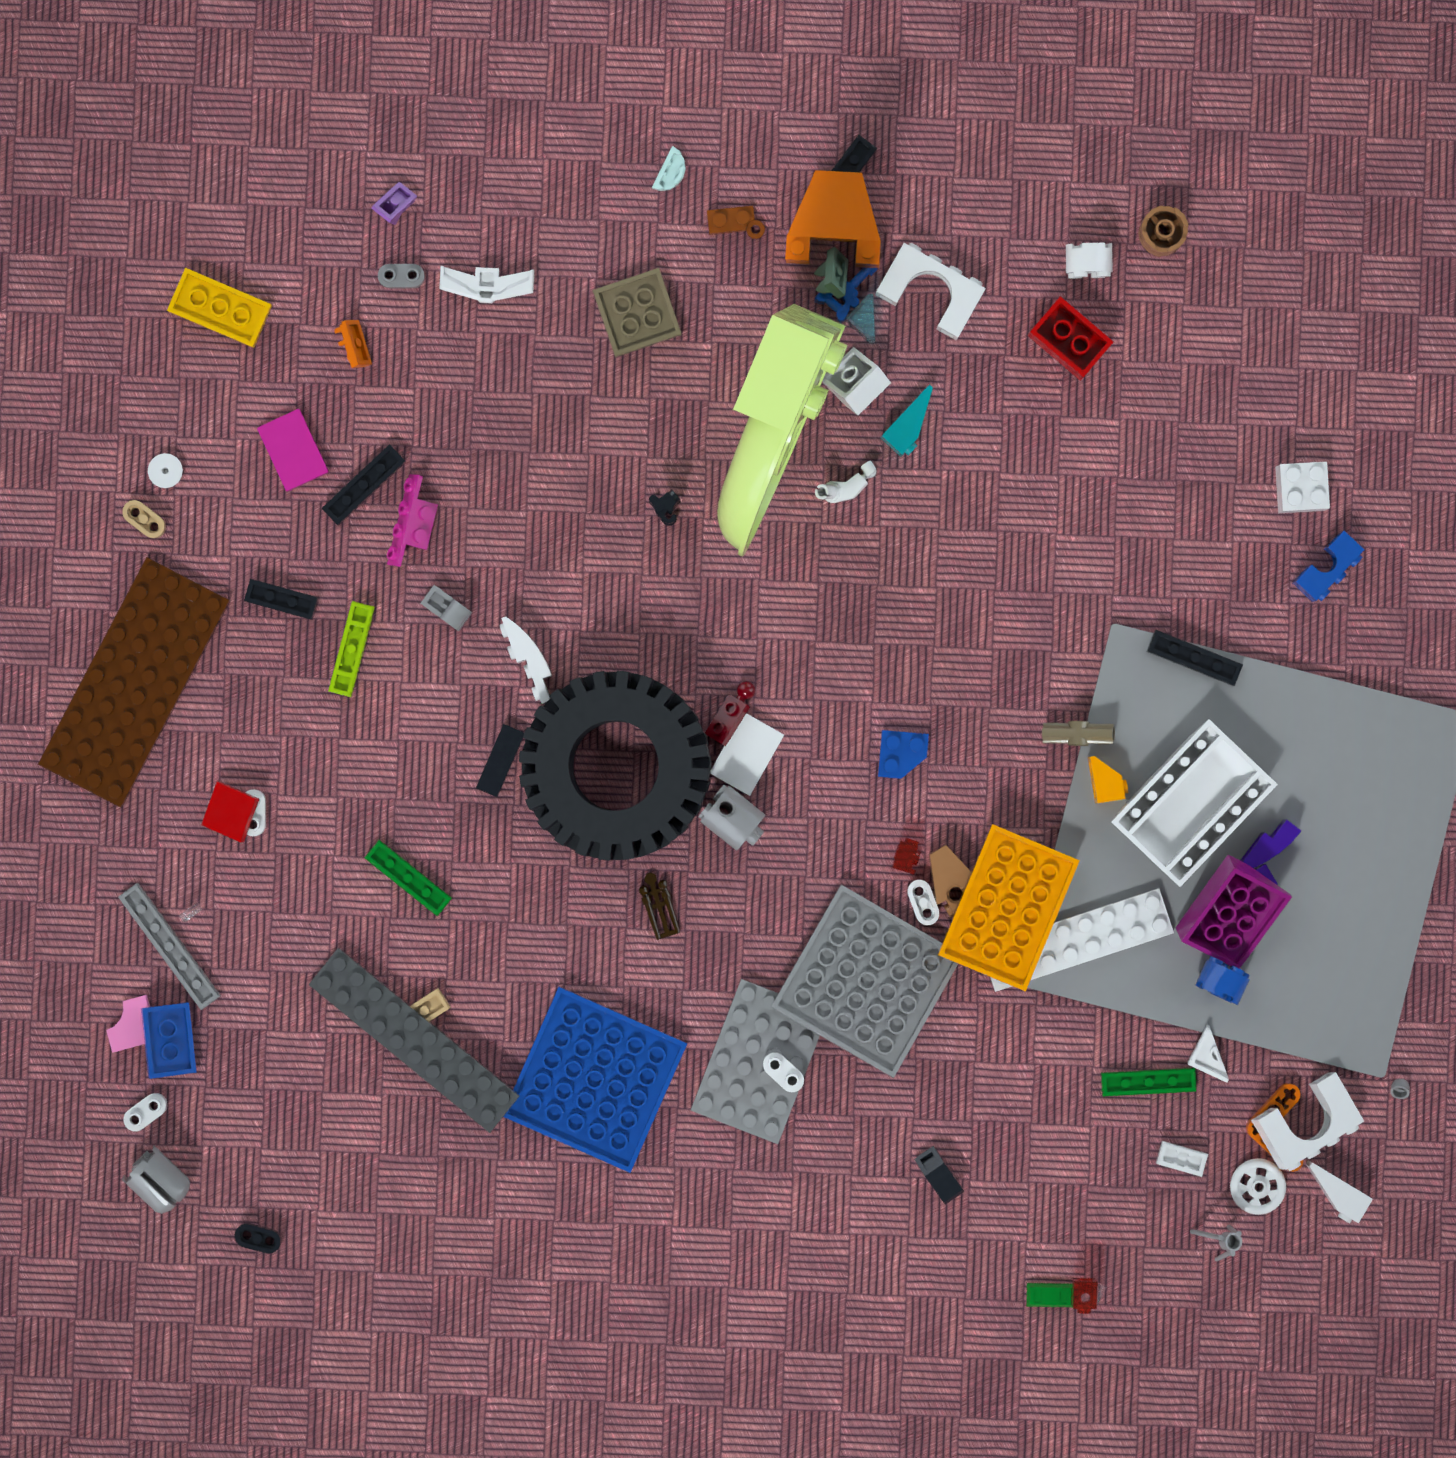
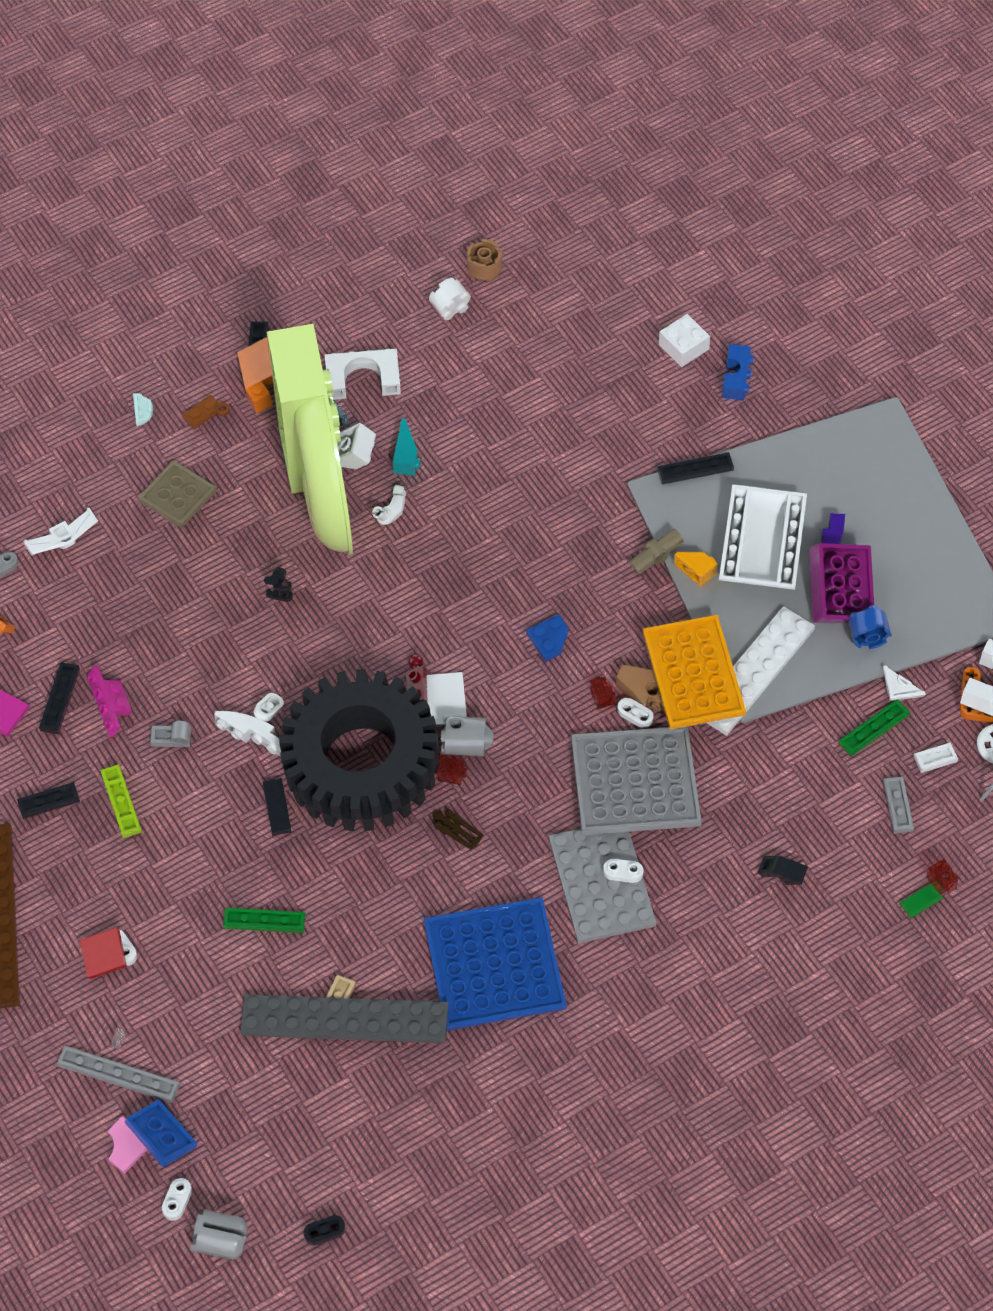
camera: 35 degrees left, 30 degrees down
(560, 644) = (268, 707): none -> white plate
(690, 834) = (451, 770): none -> clear red brick
(1070, 338) = (472, 345): red brick -> none
(1106, 1181) = (898, 805): none -> light grey tile

